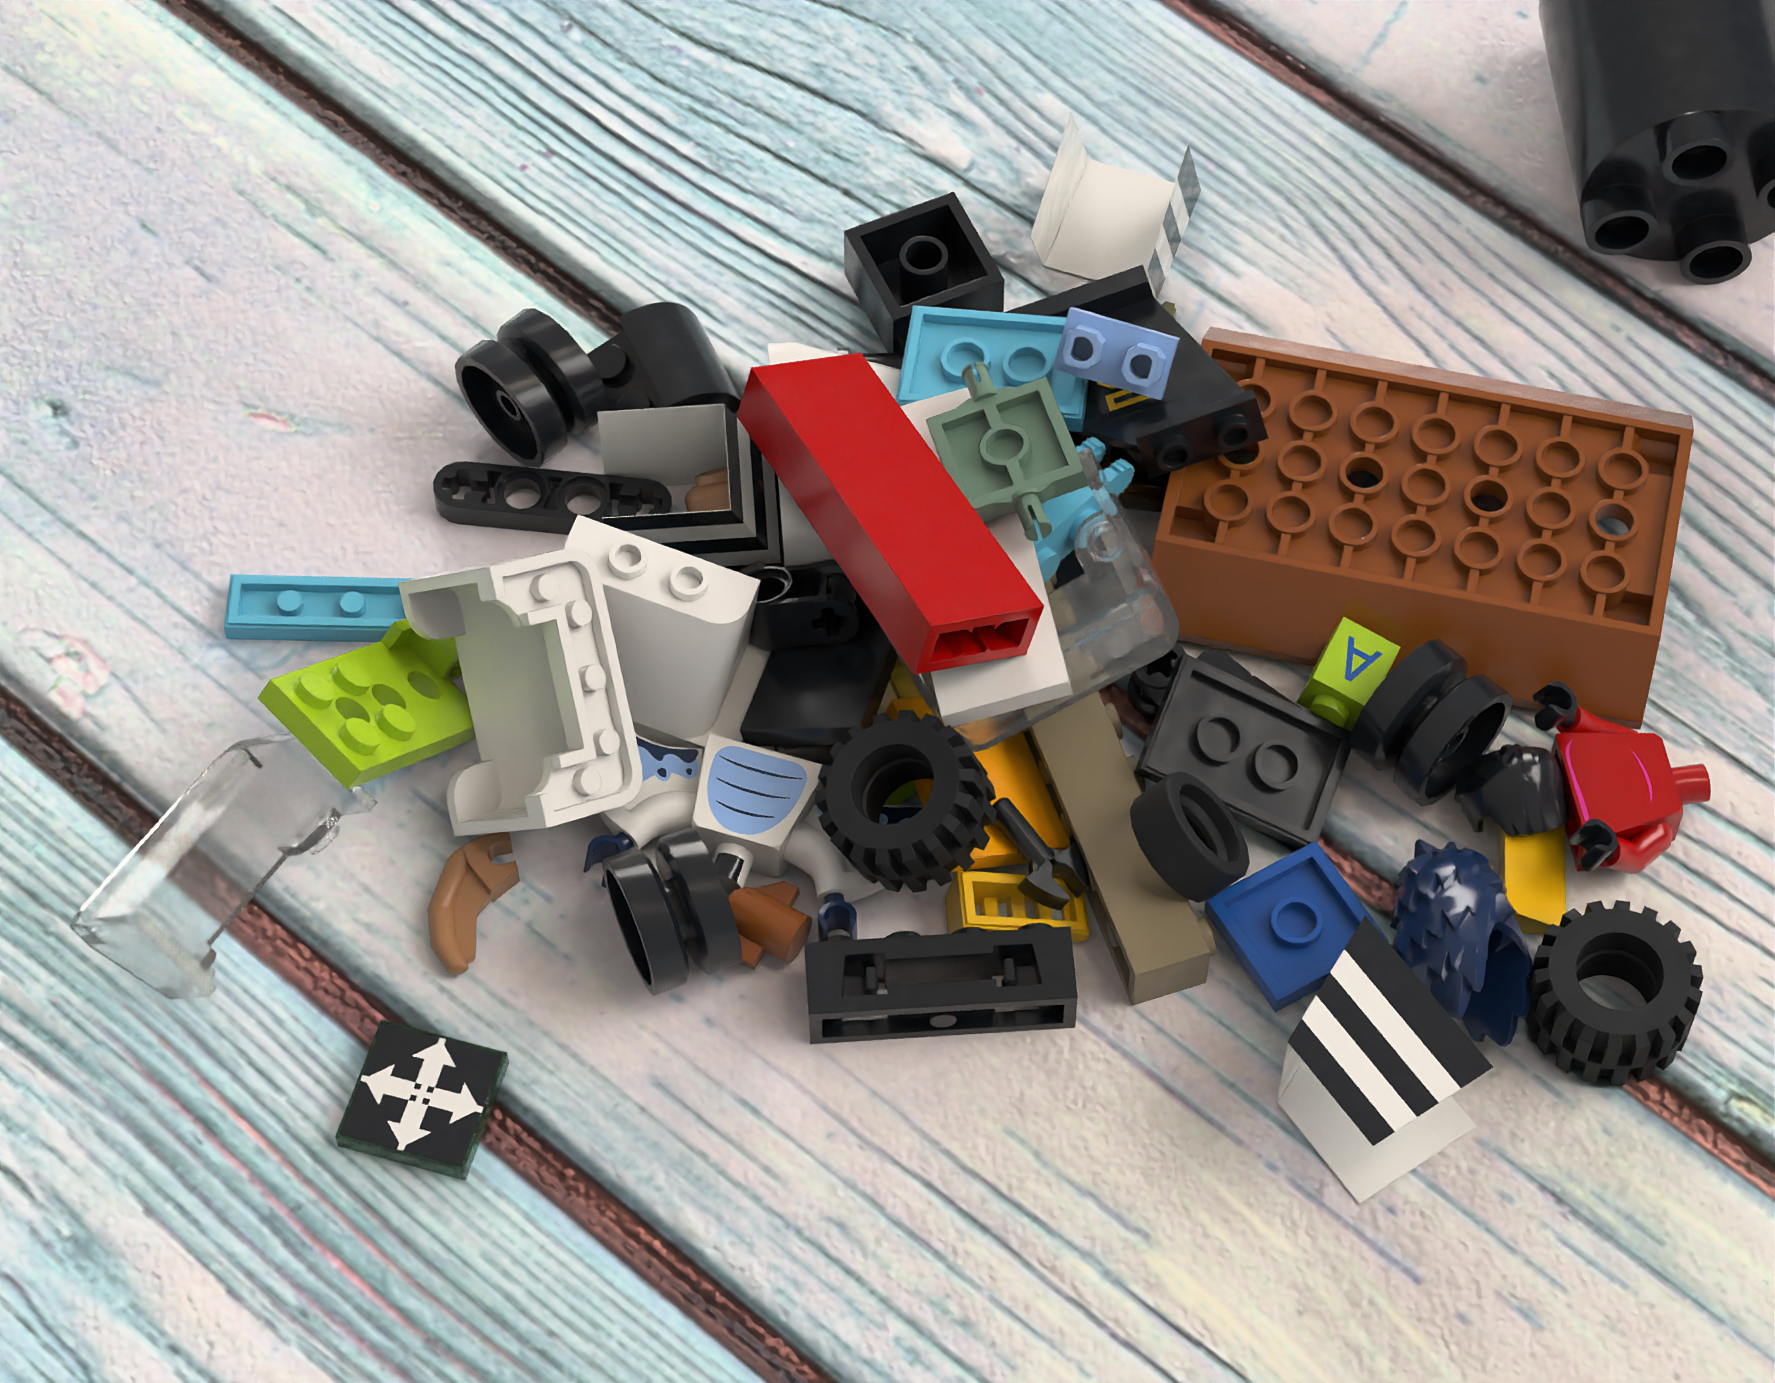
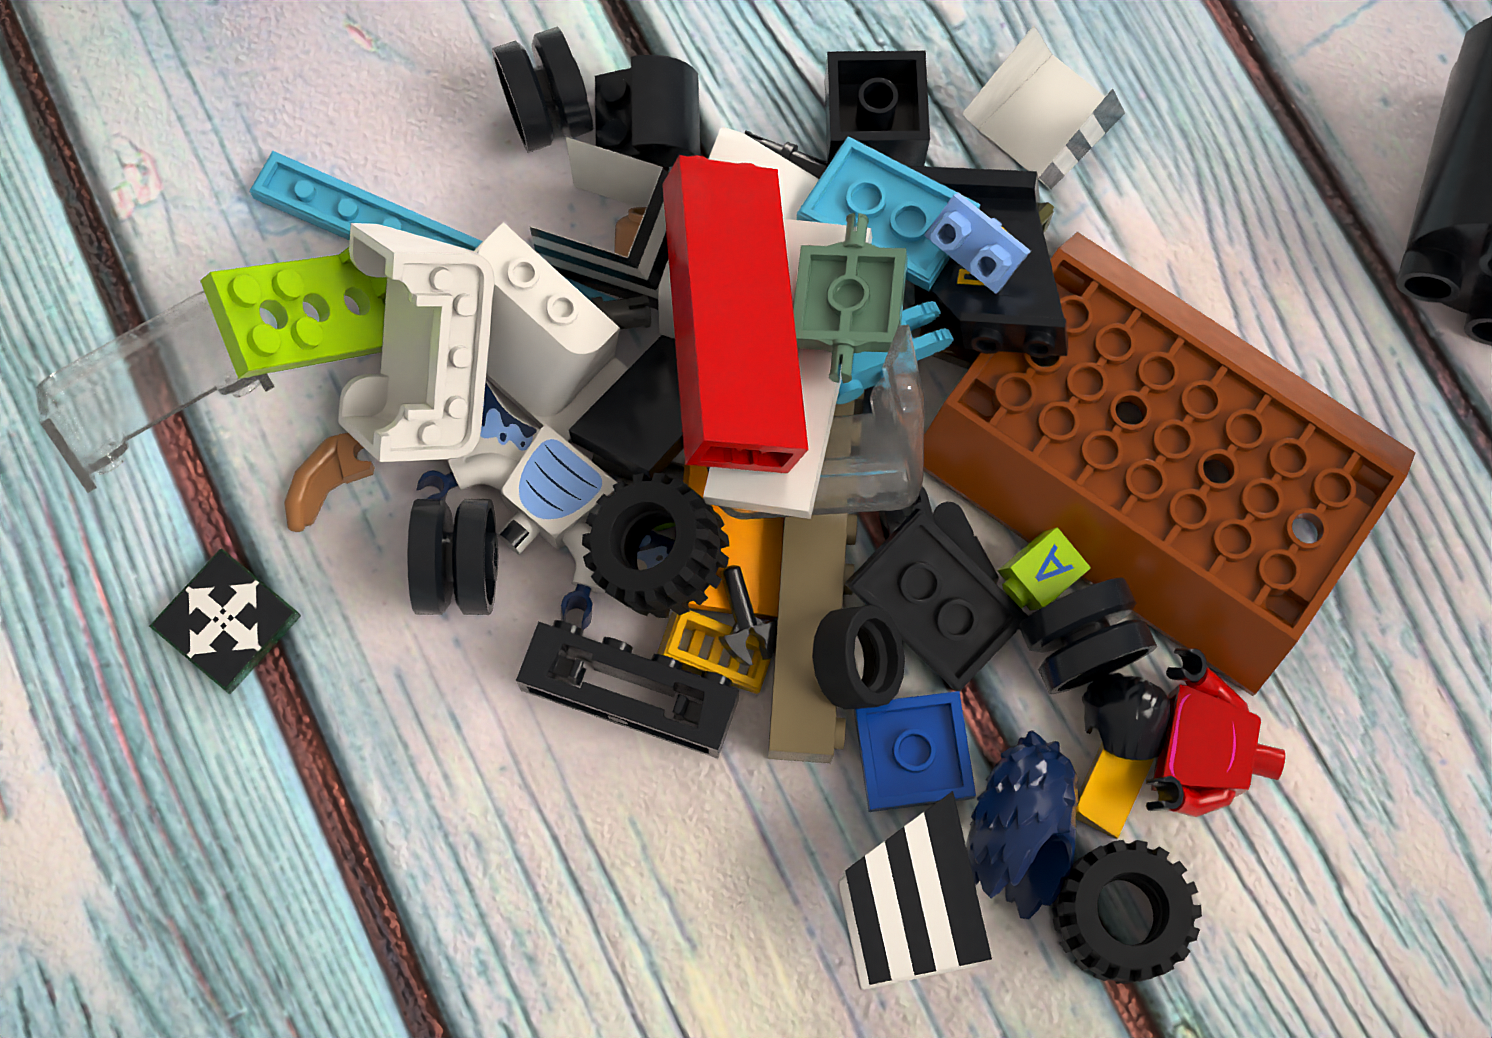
camera: 20 degrees right, 15 degrees up
(555, 492) = (532, 177): black beam -> none
(769, 922) = (526, 585): dark orange piece -> none
(799, 608) = (647, 344): black piece -> none

